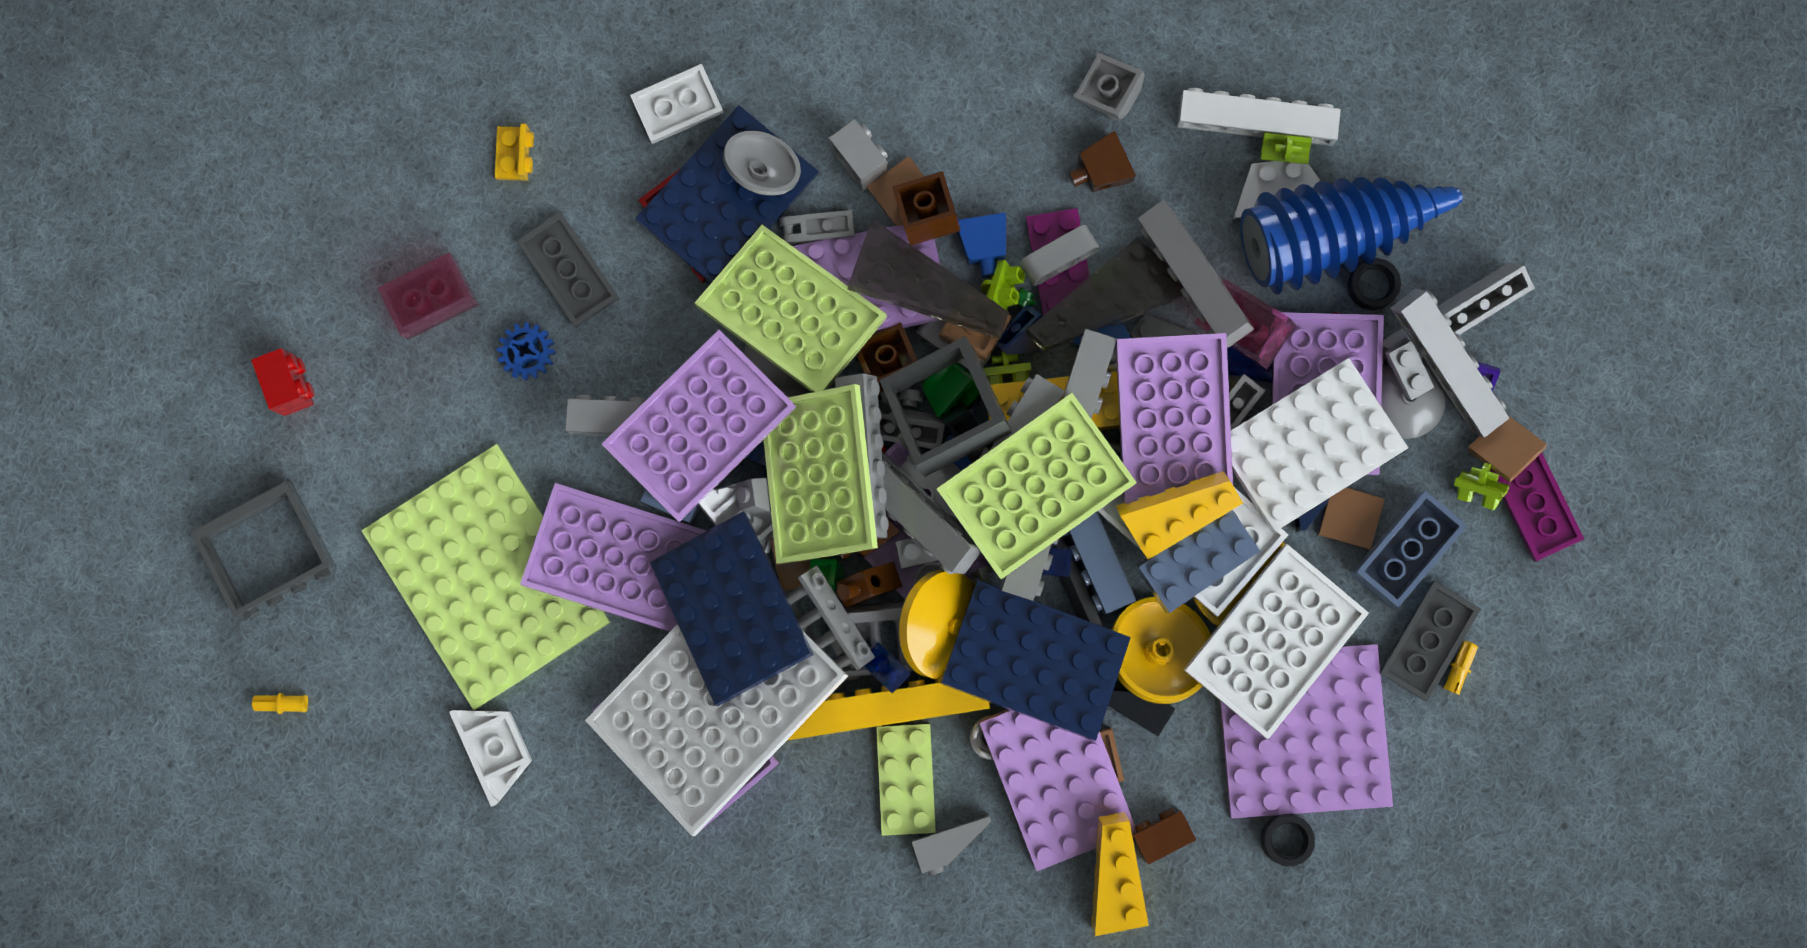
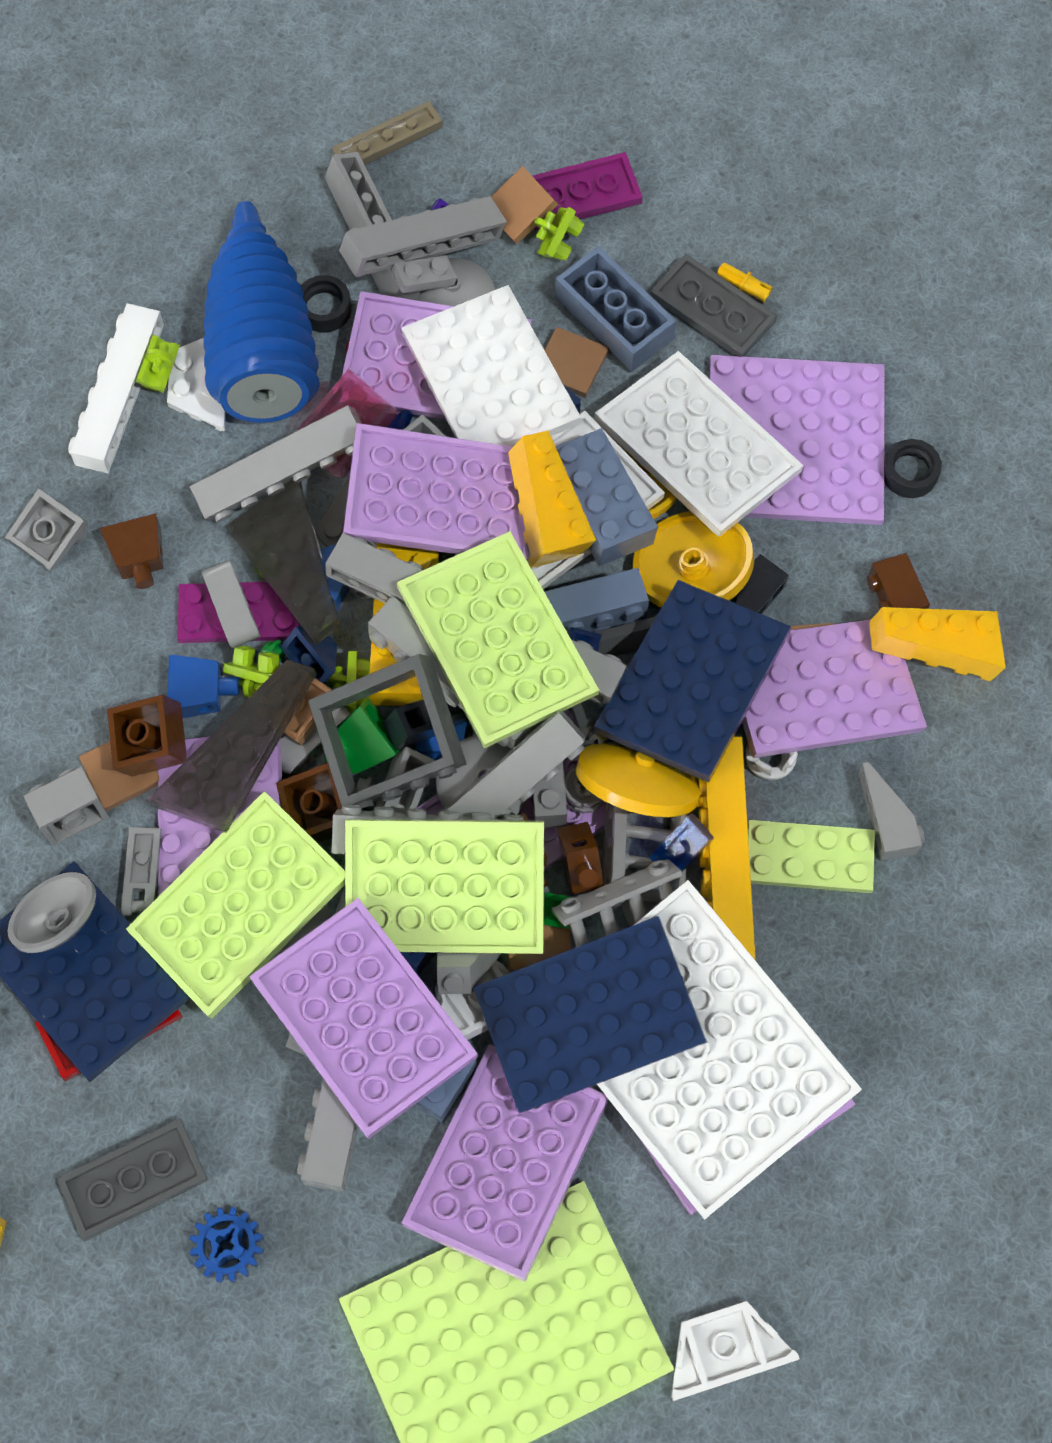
camera: 85 degrees left, 15 degrees down
(428, 296) = (131, 1363): clear pink brick -> none
(1566, 314) = (392, 133): none -> dark tan plate

